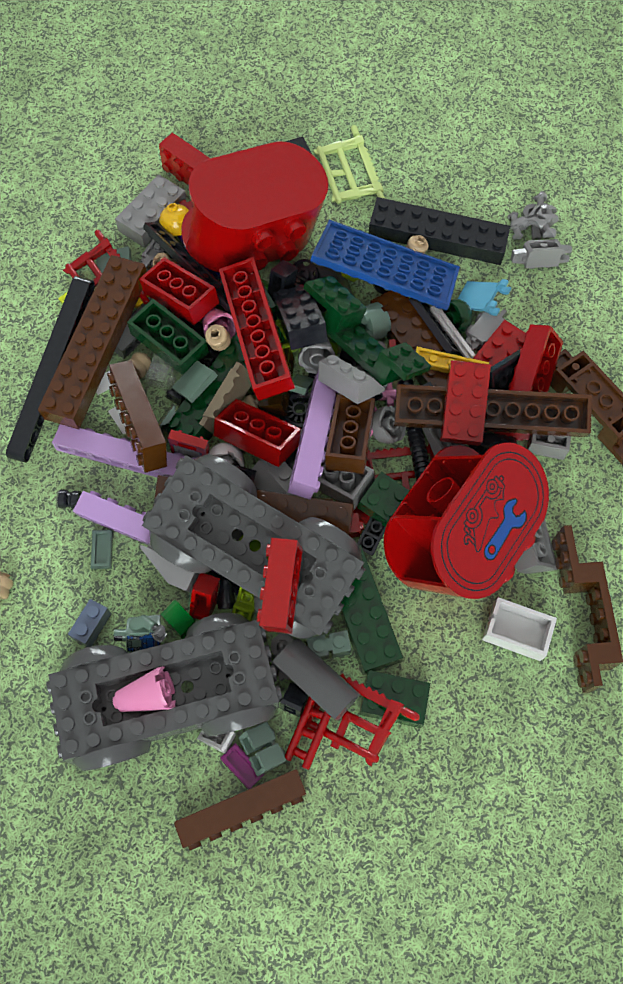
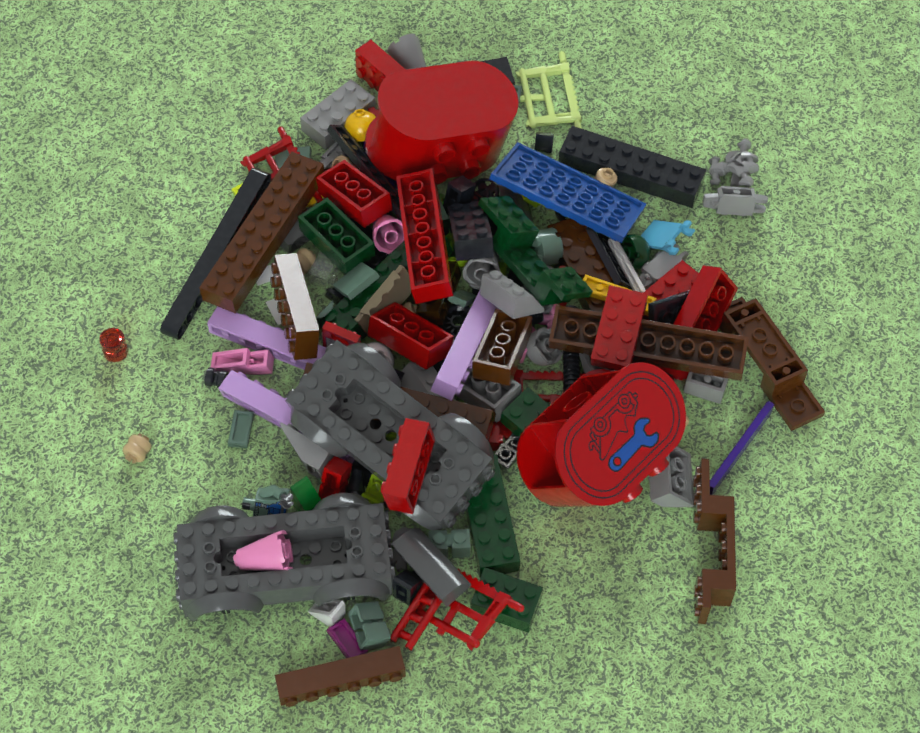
camera: 10 degrees right, 10 degrees down
(89, 623) = (220, 490): sand blue piece -> none
(94, 478) = (244, 361): none -> bright pink slope
(209, 141) = (407, 52): none -> light grey cone
(218, 337) = (385, 241): tan piece -> none
(352, 216) = (544, 142): none -> black tile
(519, 629) = (641, 552): white piece -> none
(593, 498) = (740, 447): none -> dark purple tile

